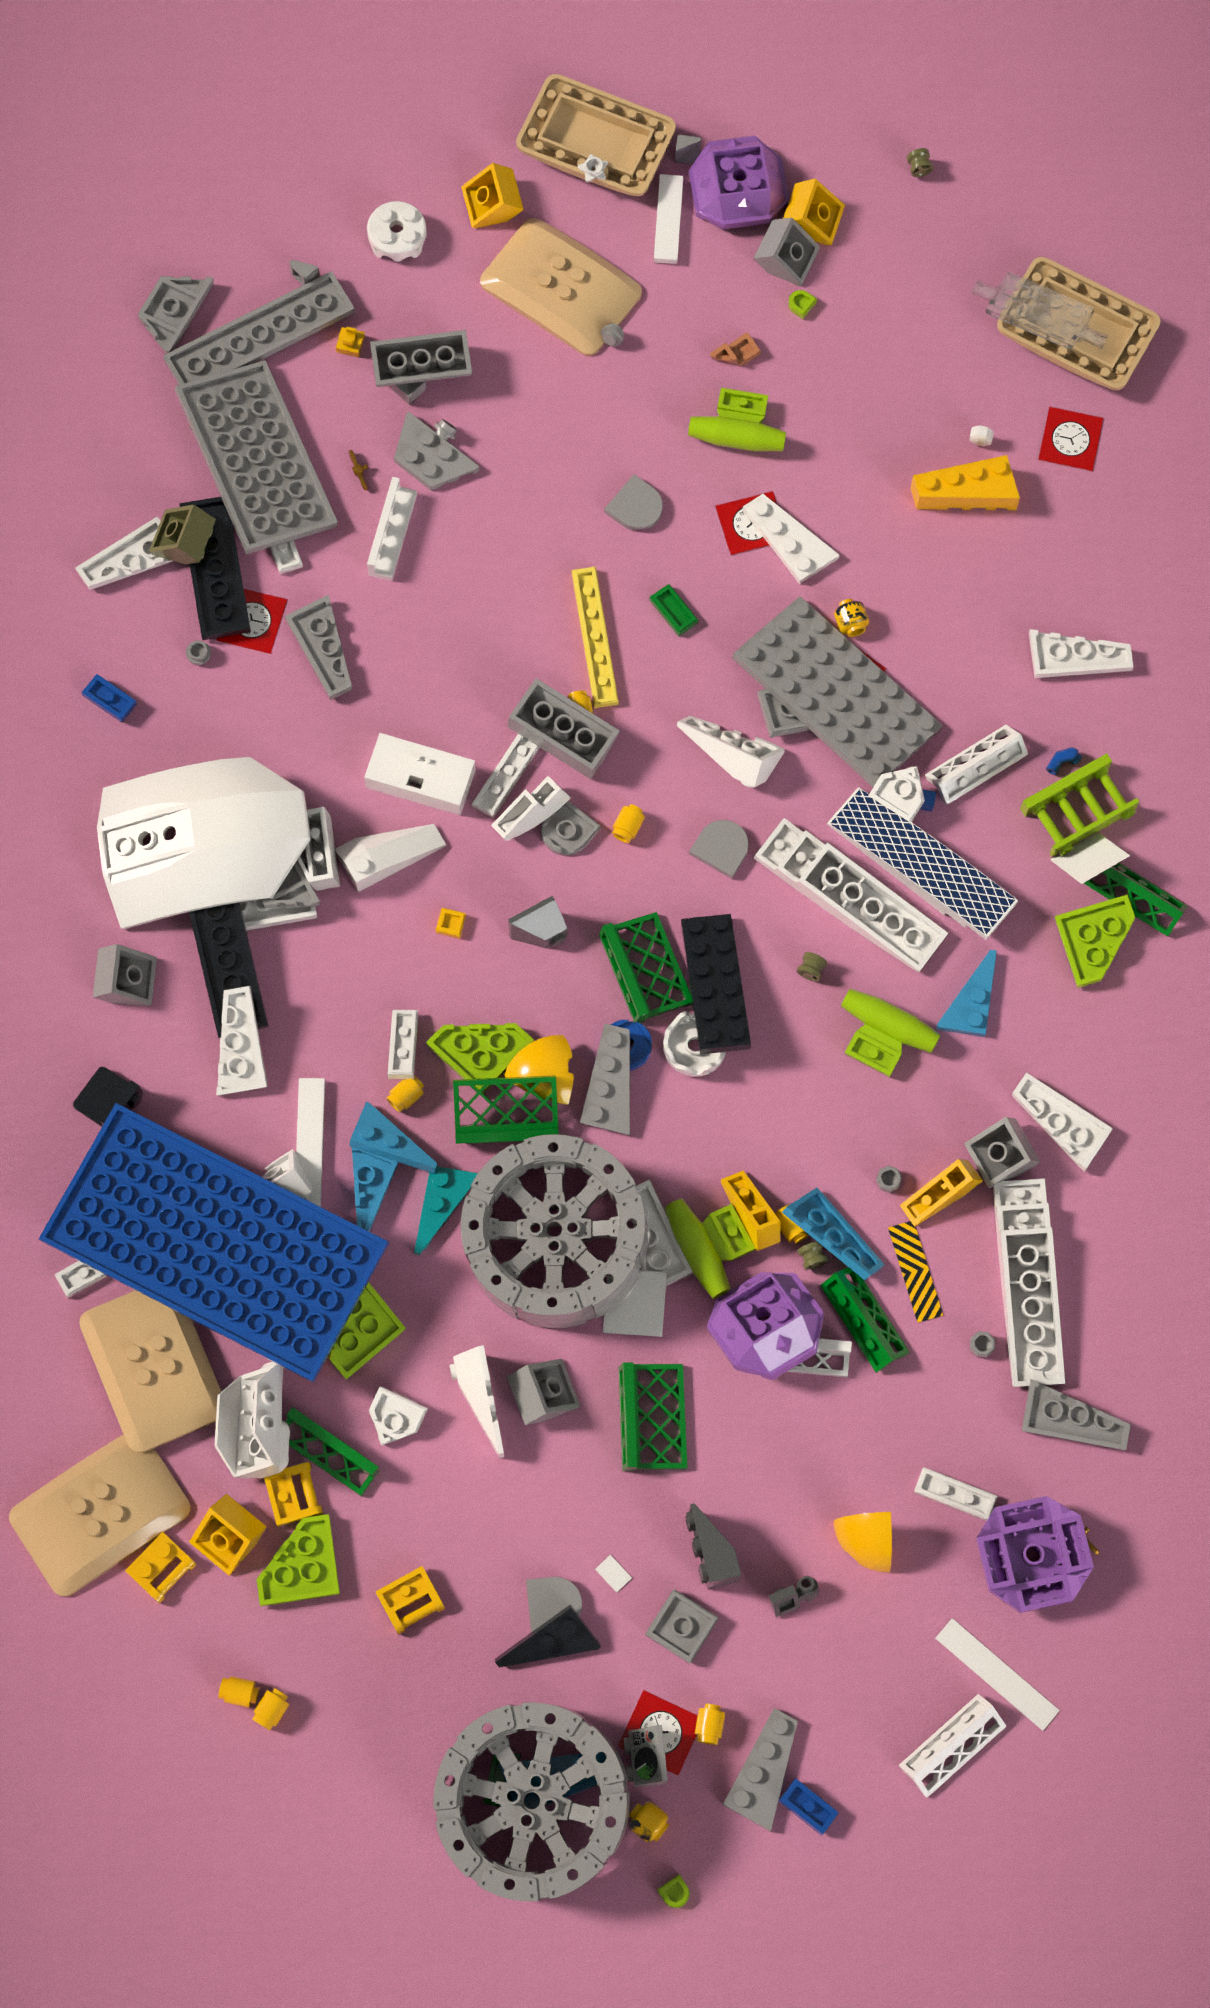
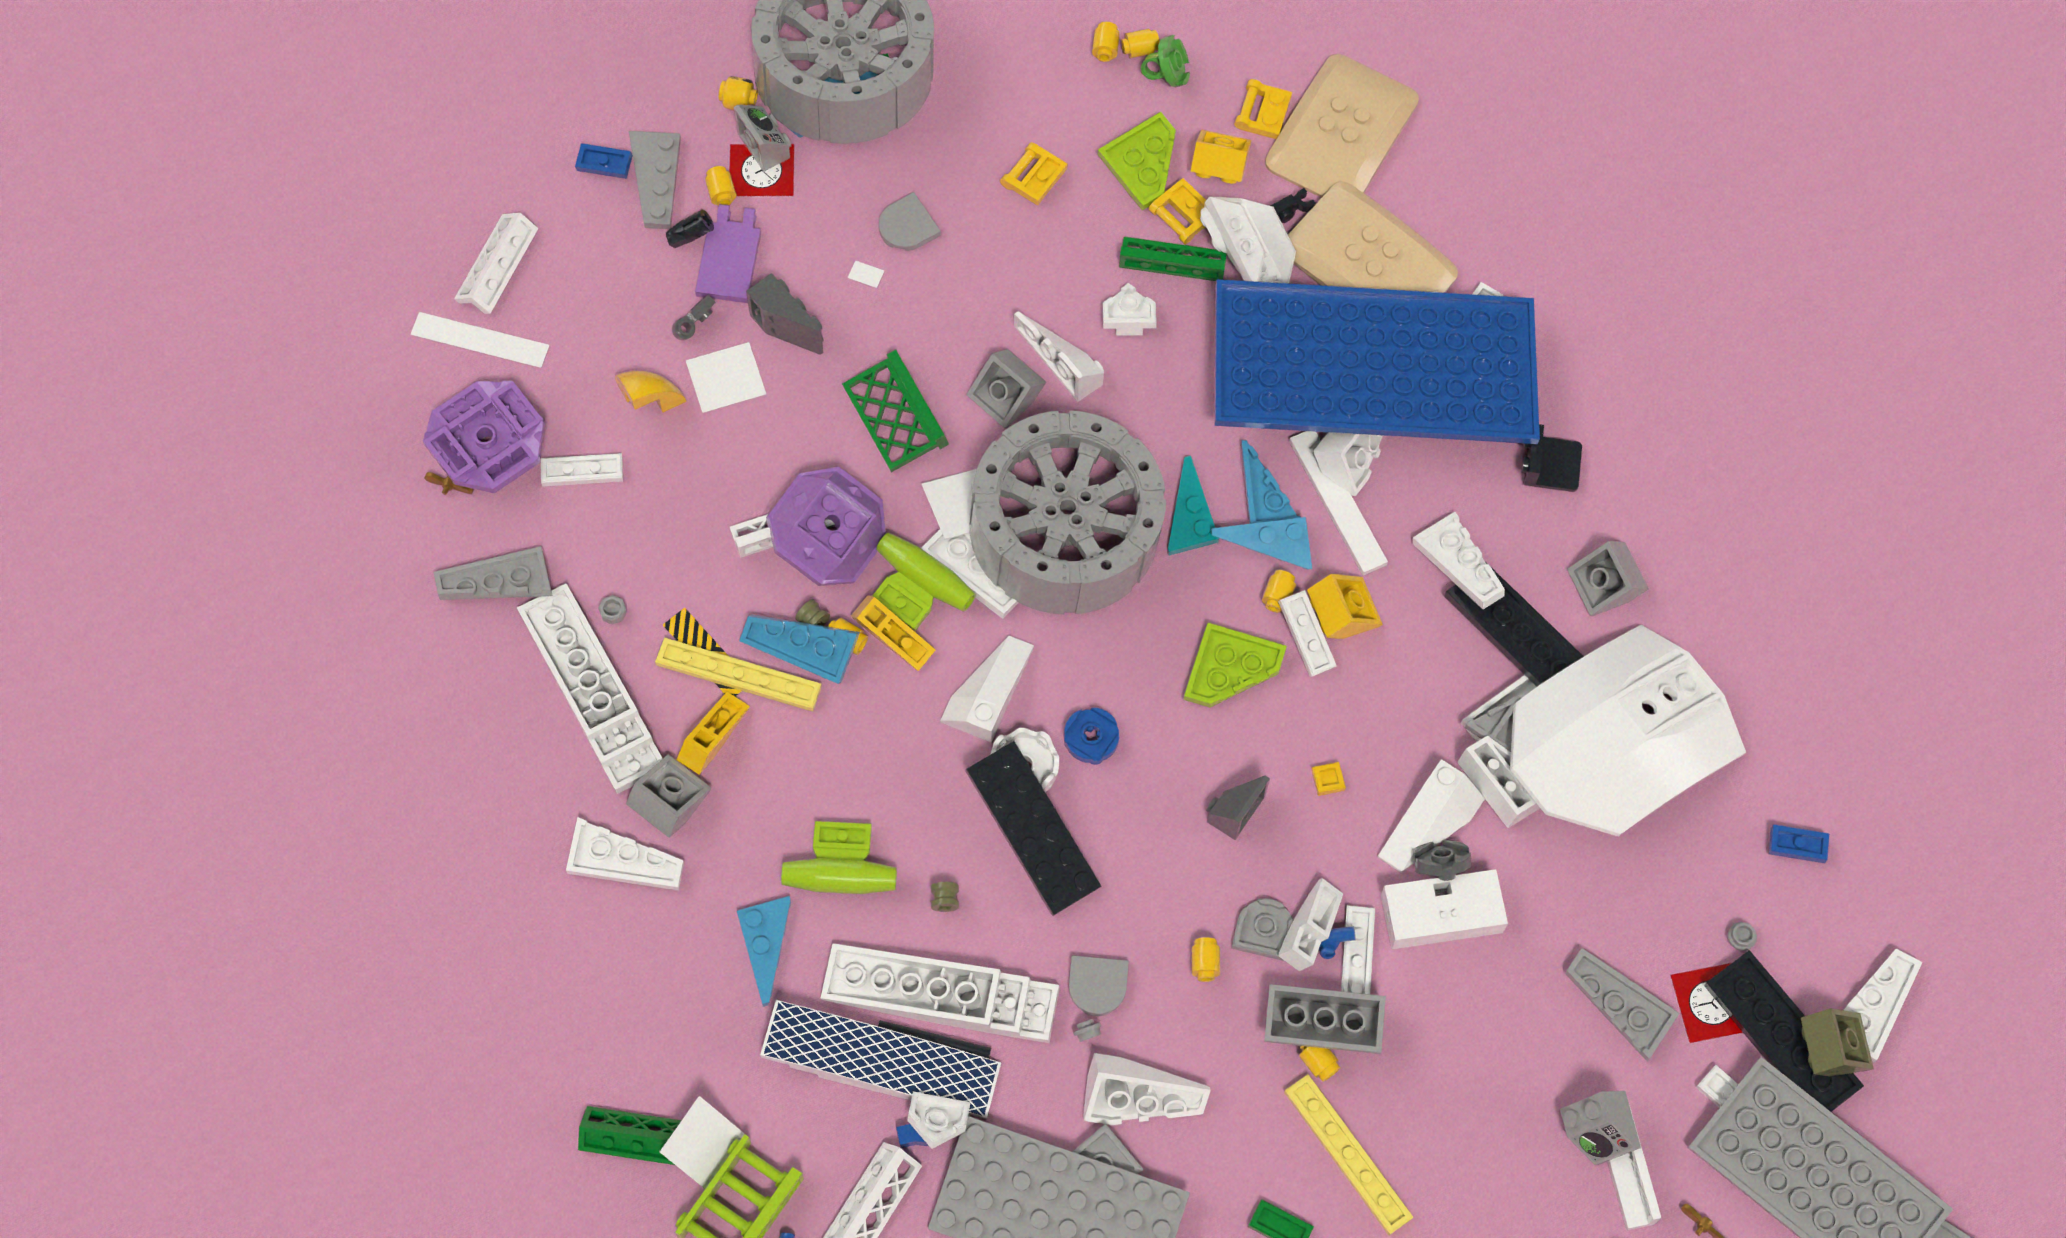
camera: 155 degrees right, 5 degrees down
(201, 1448) = (1287, 206): none -> black plate
(226, 1651) = (1171, 60): none -> bright green tile
(358, 1054) = (1343, 606): none -> yellow slope
(365, 1333) = (1193, 364): lime plate -> none
(395, 561) = (1601, 1126): none -> light grey slope
(396, 819) = (1442, 860): none -> dark grey plate
(504, 1131) = (1166, 598): green fence -> none
(514, 792) = (1337, 935): none -> blue arm
(545, 1058) = (1158, 667): yellow brick -> none
(557, 1637) = (891, 196): black wing -> none
(609, 1088) = (1088, 687): light grey wing -> none
(624, 968) = (1130, 805): green fence -> none
(675, 1892) = (690, 56): lime tile -> none
(681, 1626) = (783, 253): light grey plate -> none
(699, 1119) = (986, 694): none -> white wedge
(733, 1647) = (729, 257): none -> medium lavender tile
(748, 812) = (1087, 1030): none -> light grey plate
(763, 1689) = (690, 229): none -> black hinge
(787, 1528) = (725, 377): none -> white sticker
(861, 1319) = (737, 575): green fence -> none
(871, 864) = (969, 1047): none -> black bar
(888, 1179) = (771, 723): light grey tile -> none
(897, 1236) = (738, 674): none -> light yellow tile
(1094, 937) = (664, 1064): lime plate -> none

